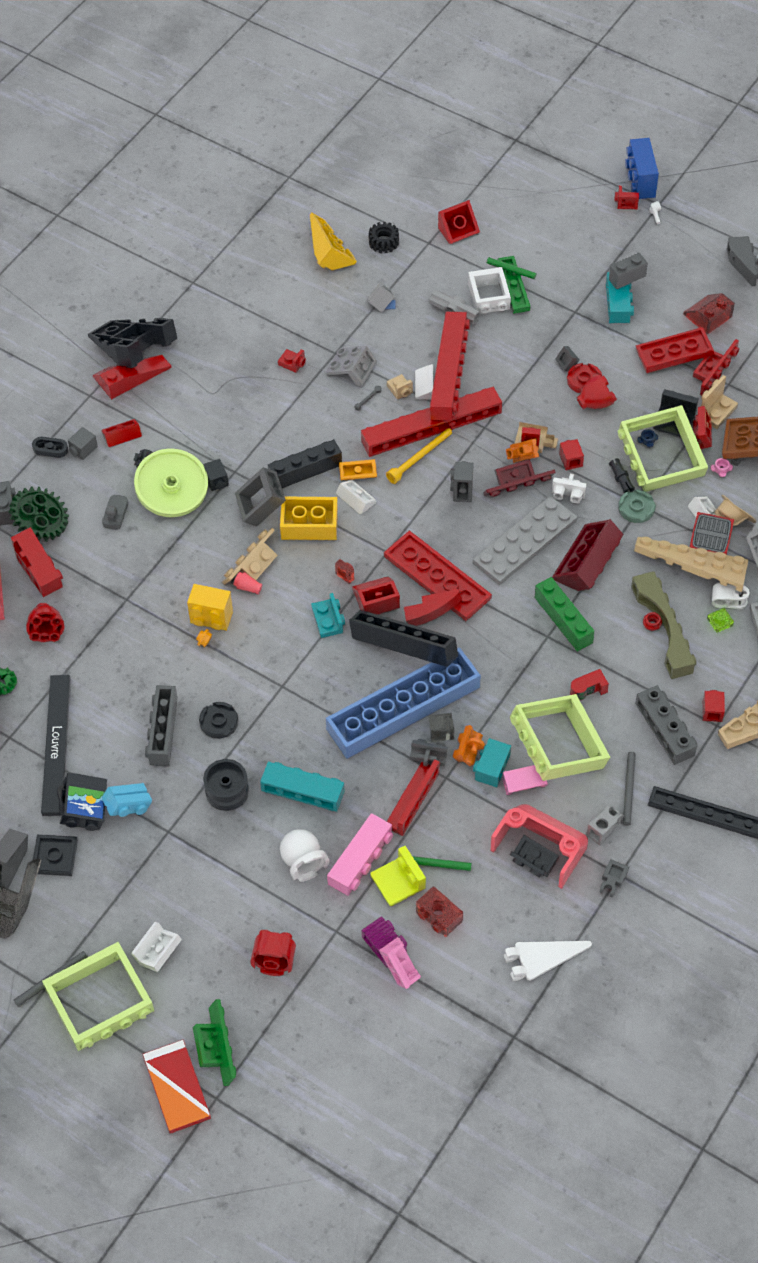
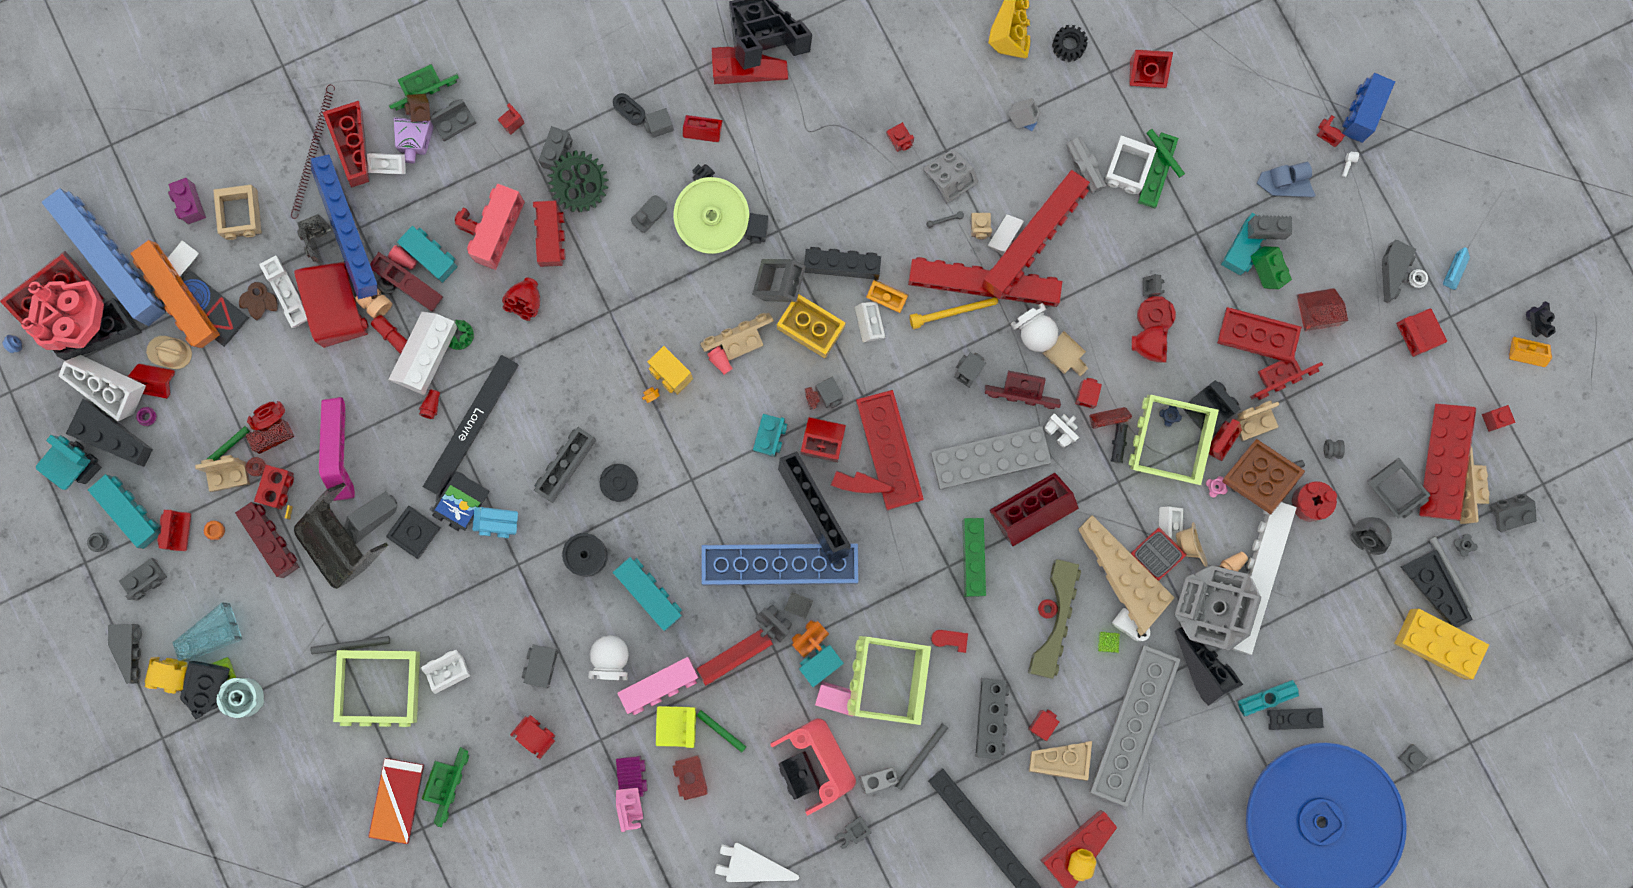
camera: 25 degrees right, 25 degrees up
(9, 747) = (429, 406): none -> red cone
(242, 893) = (540, 666): none -> dark grey brick
(359, 558) = (829, 392): none -> dark grey brick
(498, 429) = (1037, 330): none -> white tile
(522, 451) = (1044, 367): orange hips -> none
(531, 433) = (1062, 355): red bracket -> none
(601, 464) = (1110, 417): none -> clear red slope
(618, 244) = (1288, 180): none -> sand blue panel
(636, 506) = (1113, 481): sand green tile -> none
(649, 299) = (1271, 267): none -> green brick

